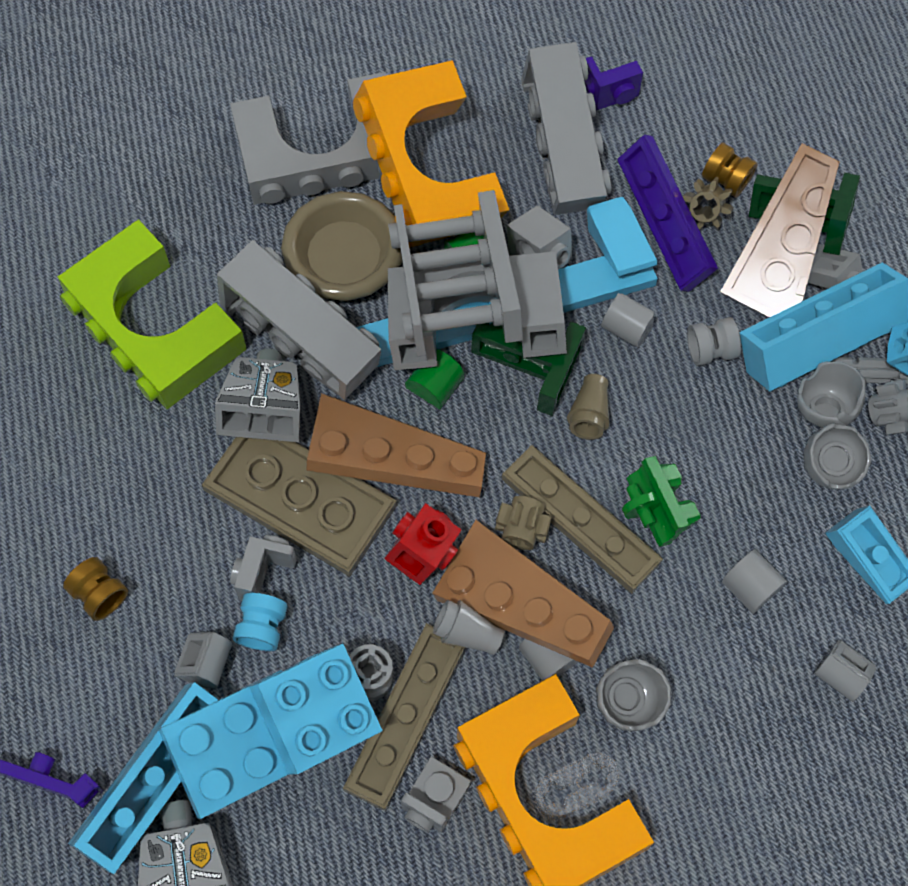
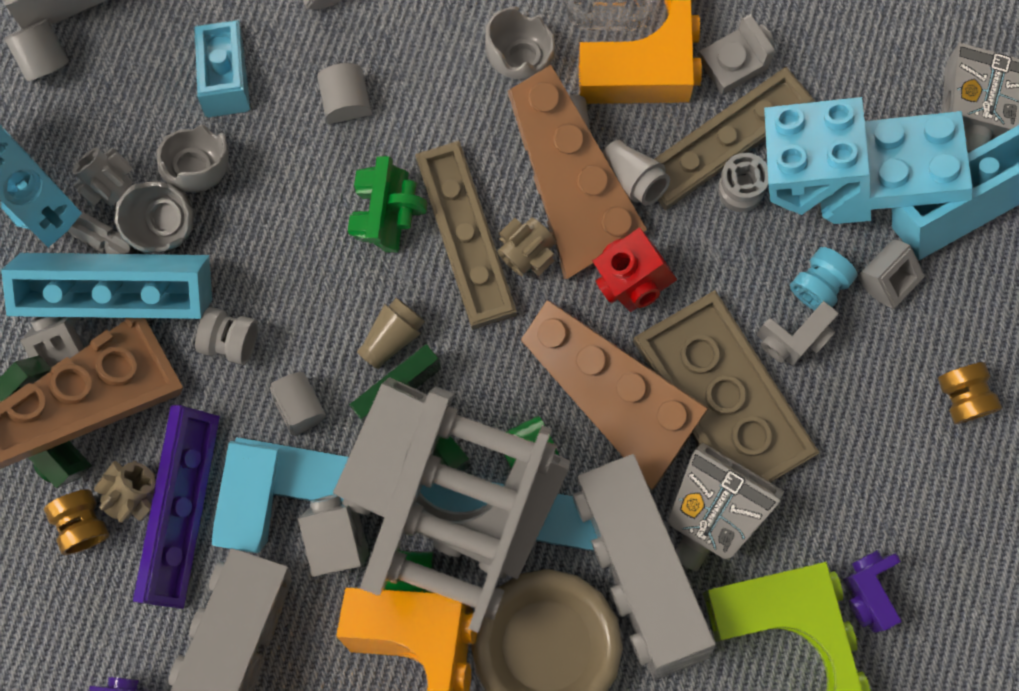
camera: 145 degrees left, 10 degrees up
(116, 394) = (869, 600): none -> dark purple bracket

